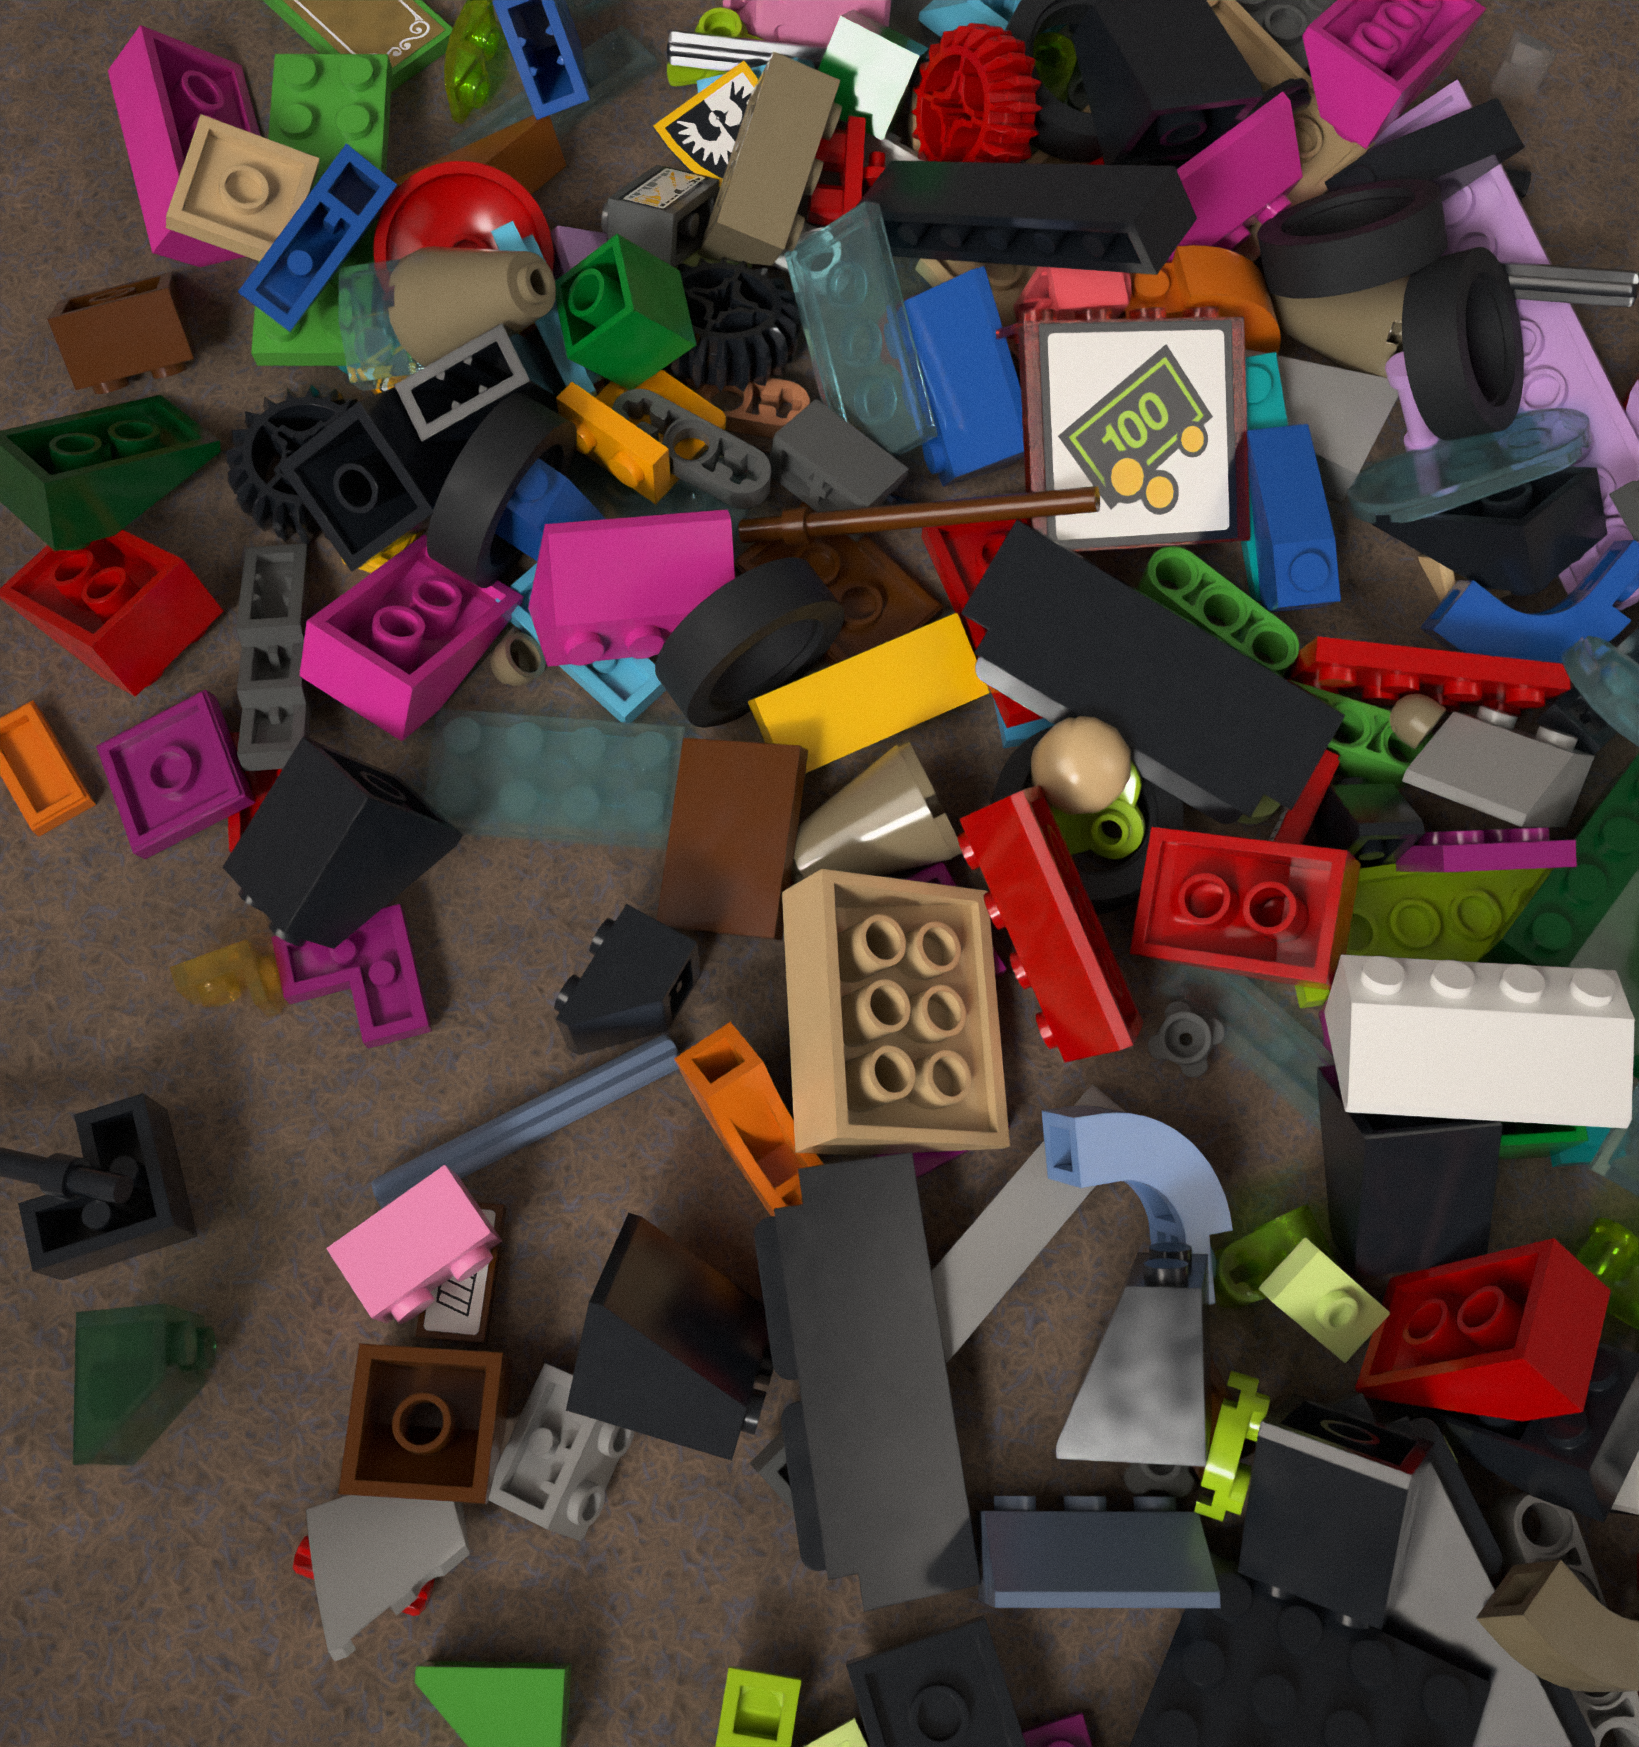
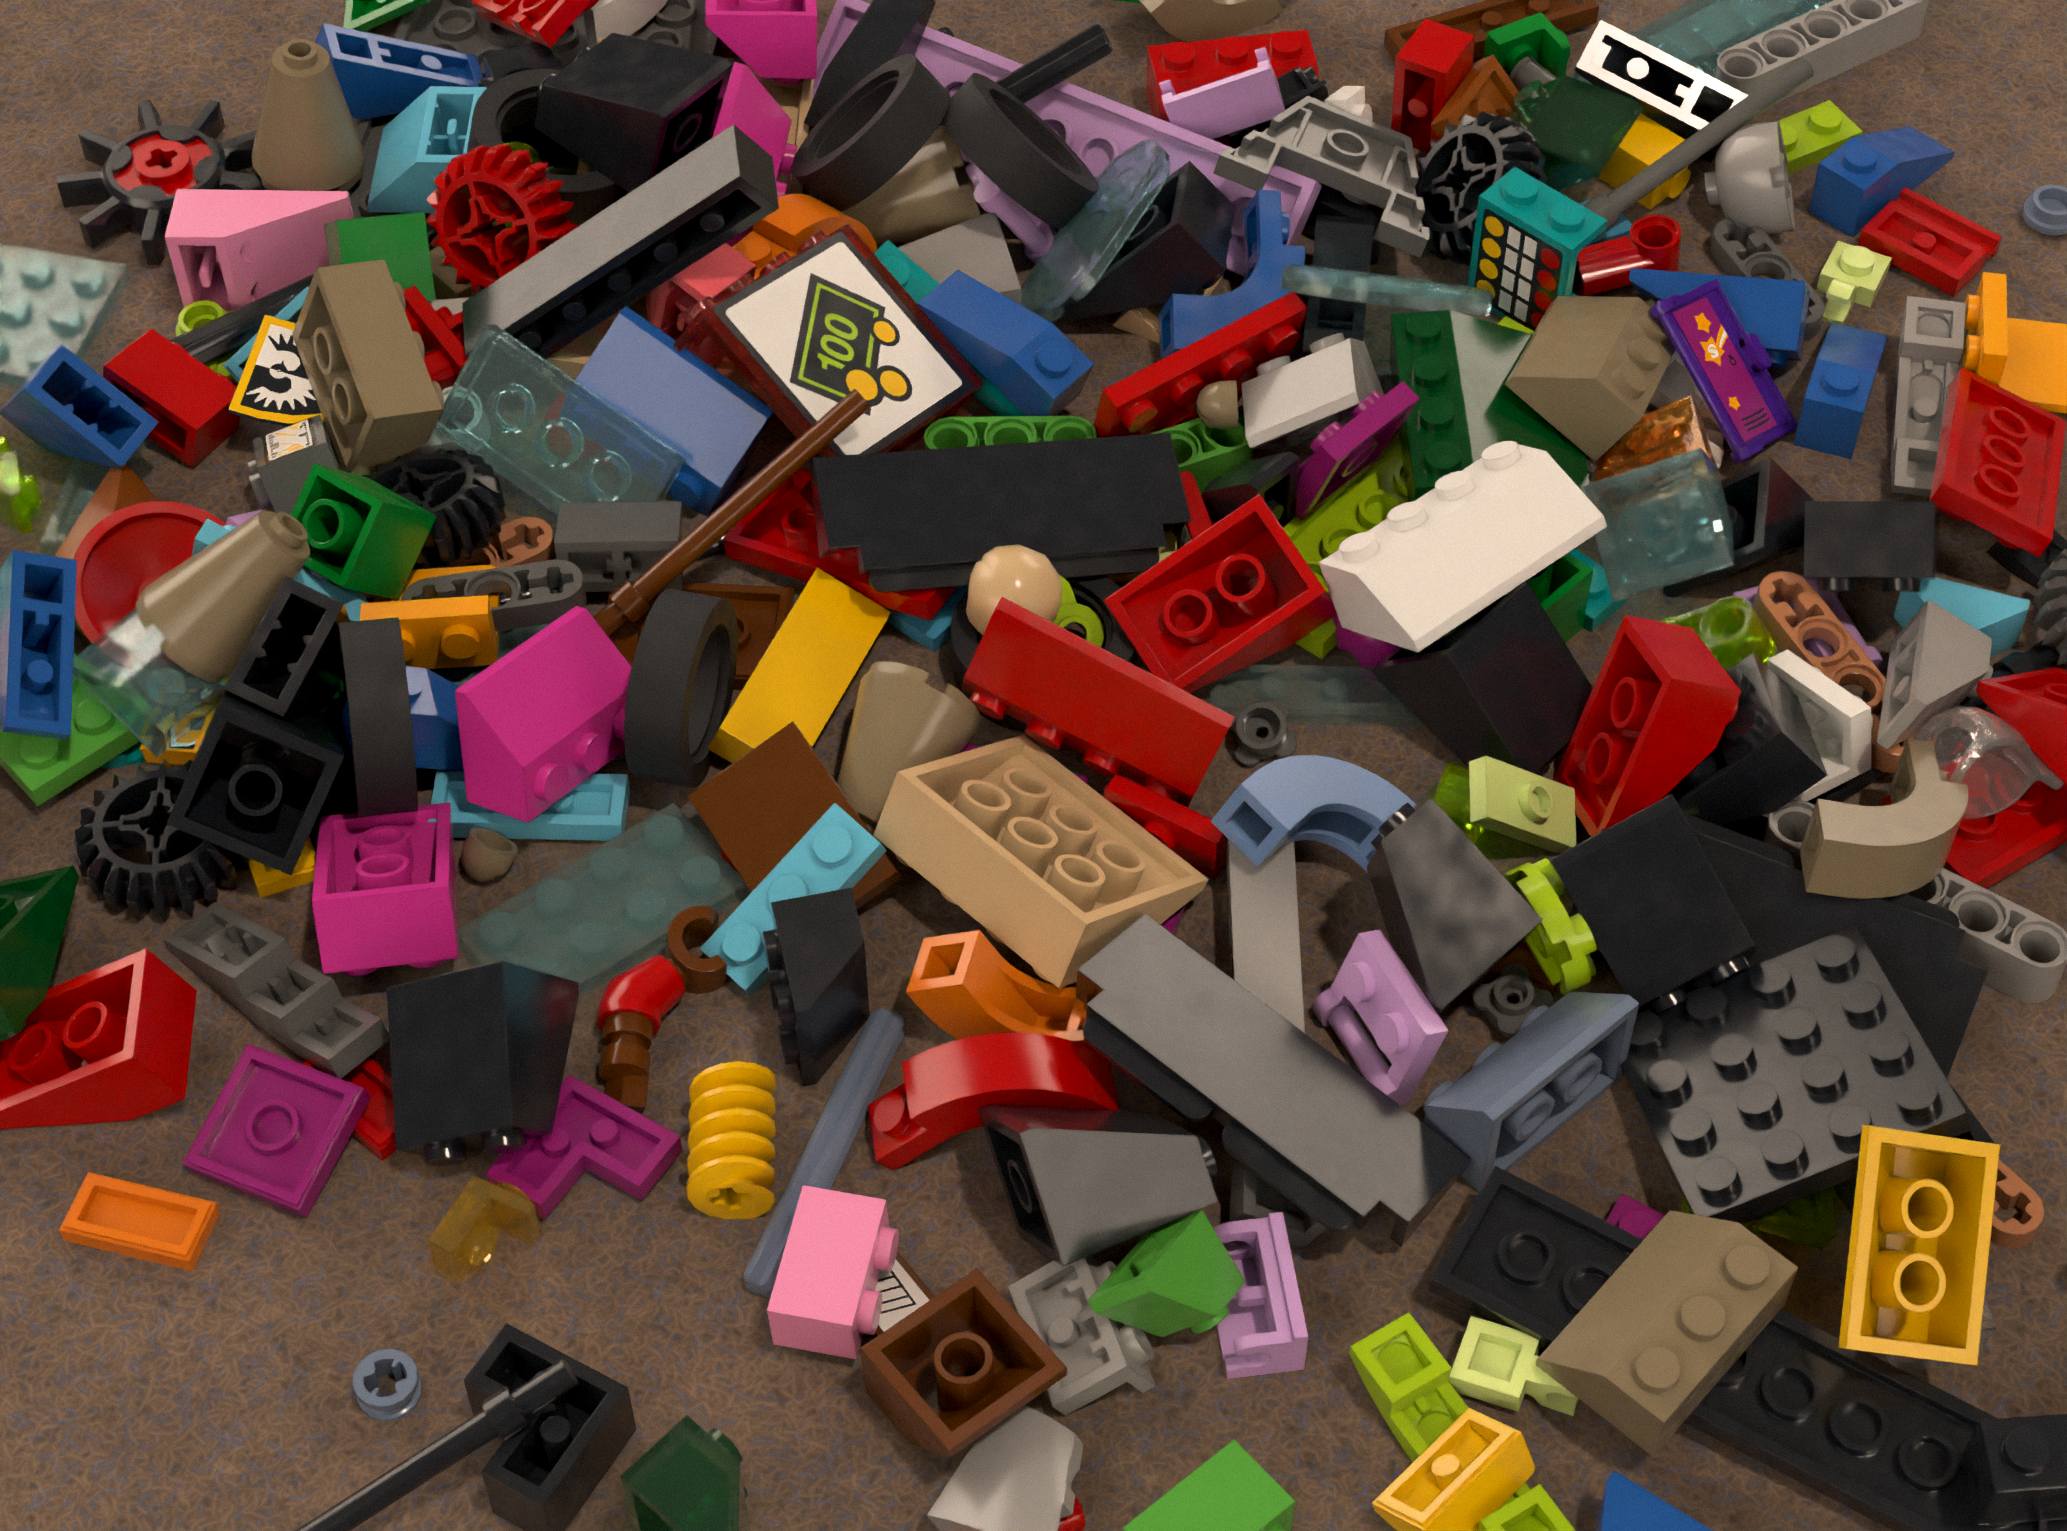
camera: 35 degrees left, 20 degrees down
(67, 1029) = (367, 1379): none -> sand blue bush
(459, 1060) = (732, 1140): none -> yellow piece
(502, 882) = (644, 994): none -> reddish brown piece
(632, 78) = (177, 392): none -> red brick
(640, 1489) = (1171, 1280): none -> bright green slope
(668, 1192) = (999, 1068): none -> red arch
(690, 889) = (824, 860): none -> medium azure plate
(711, 1544) = (1266, 1314): none -> lavender hinge
(1025, 1060) = (1173, 824): none -> red plate
(1025, 1397) = (1392, 1008): none -> lavender plate

